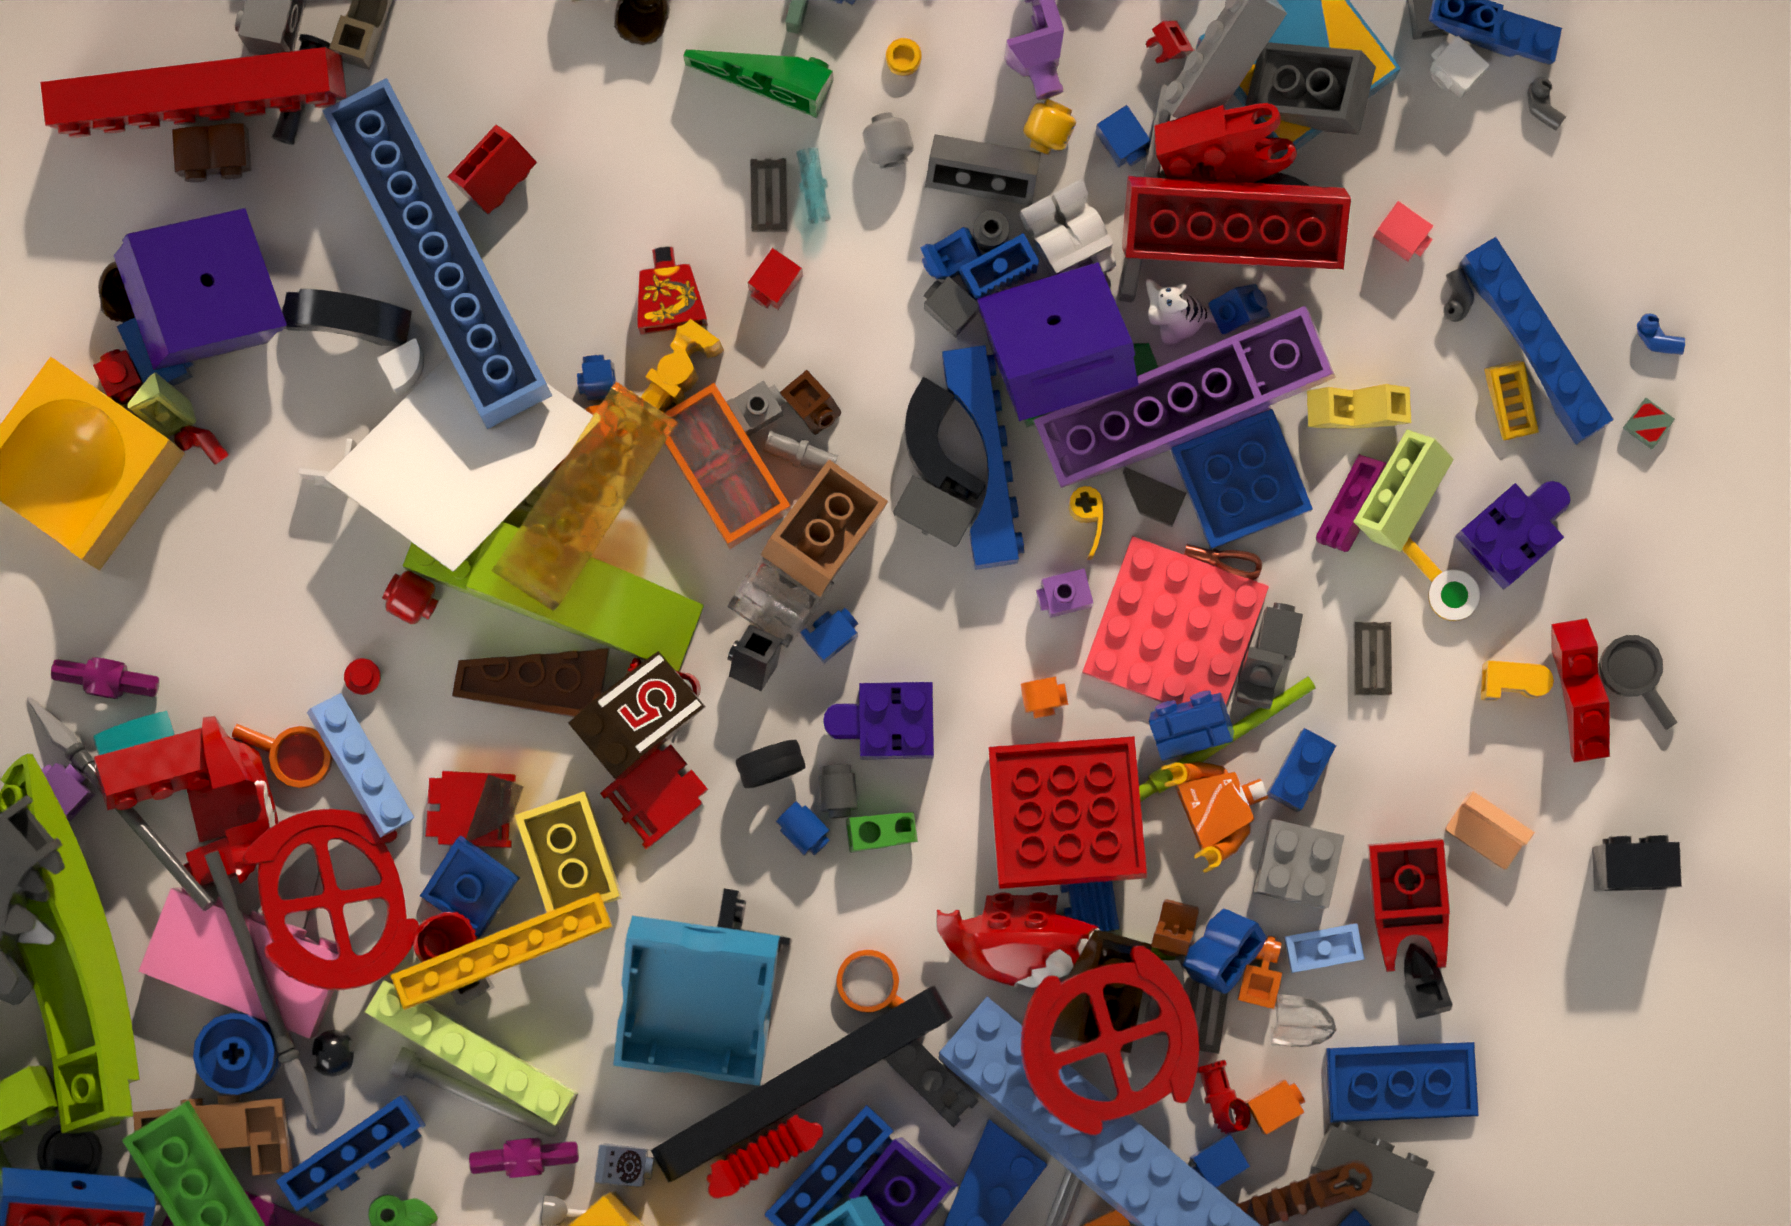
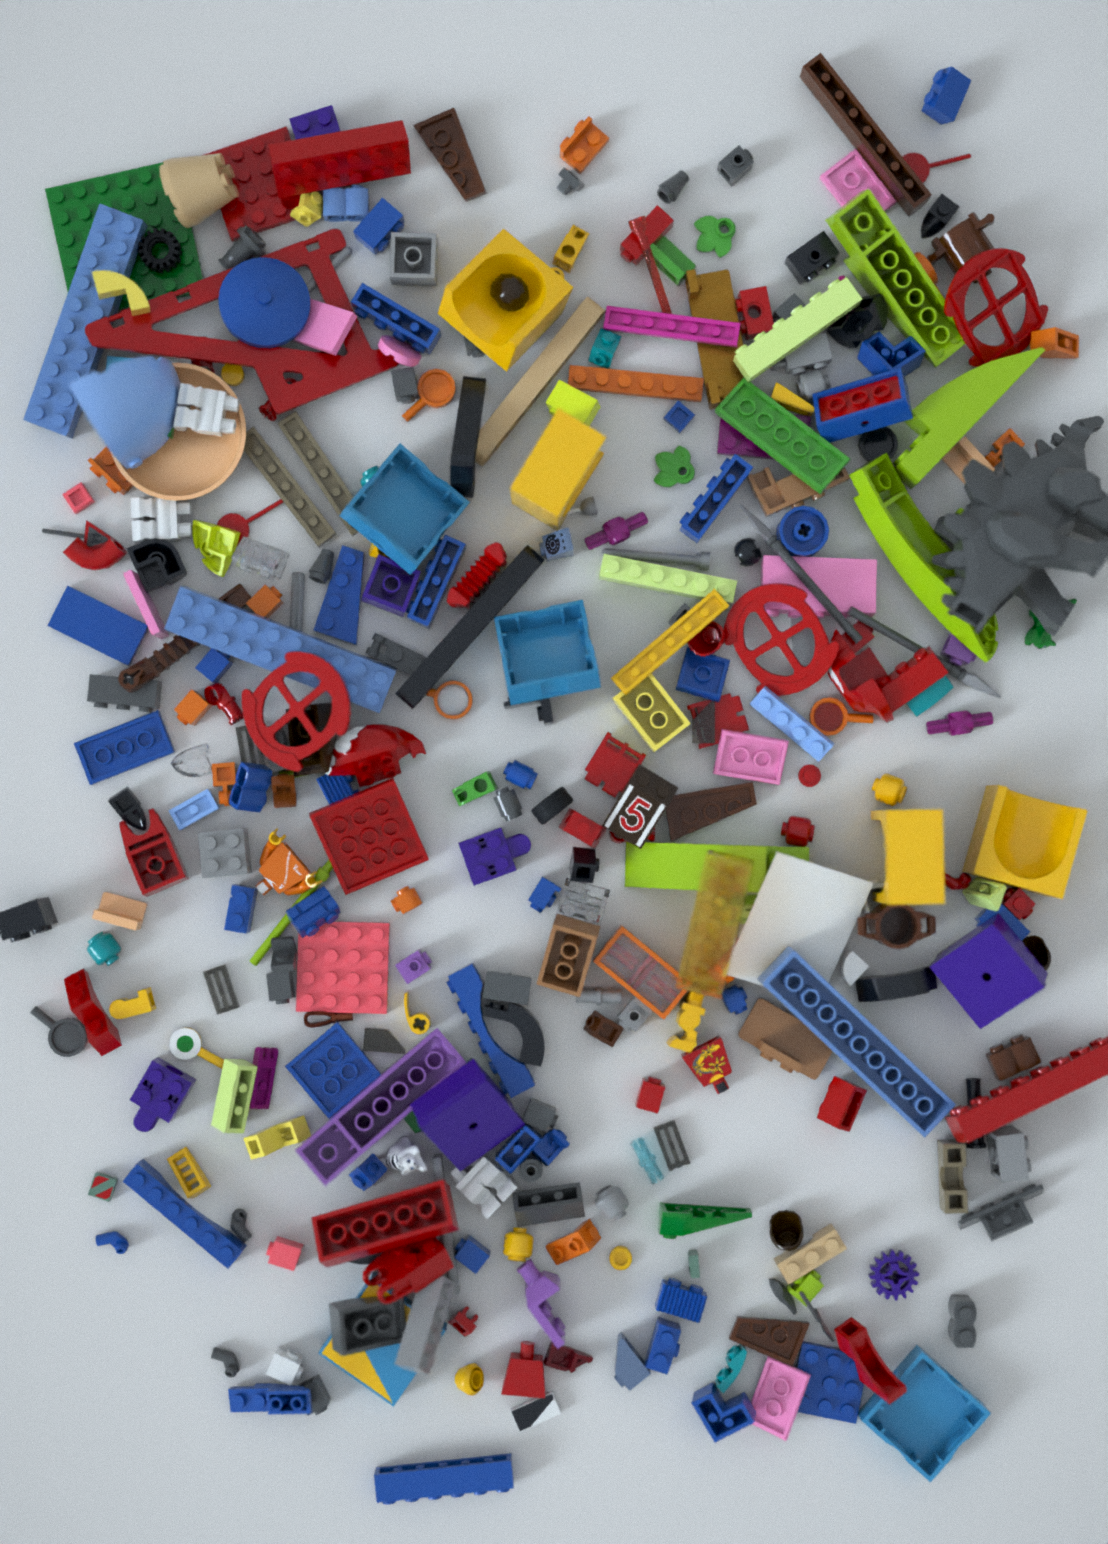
camera: 160 degrees right, 5 degrees up
(248, 613) = (889, 789): none -> yellow head
(250, 496) = (912, 857): none -> yellow piece
(314, 404) = (895, 925): none -> reddish brown container
(441, 735) = (750, 756): none -> bright pink tile
(543, 293) = (784, 1039): none -> medium nougat bracket
(738, 715) = (582, 828): none -> red torso
(965, 99) = (574, 1244): none -> orange bracket
(1532, 781) = (103, 948): none -> teal head

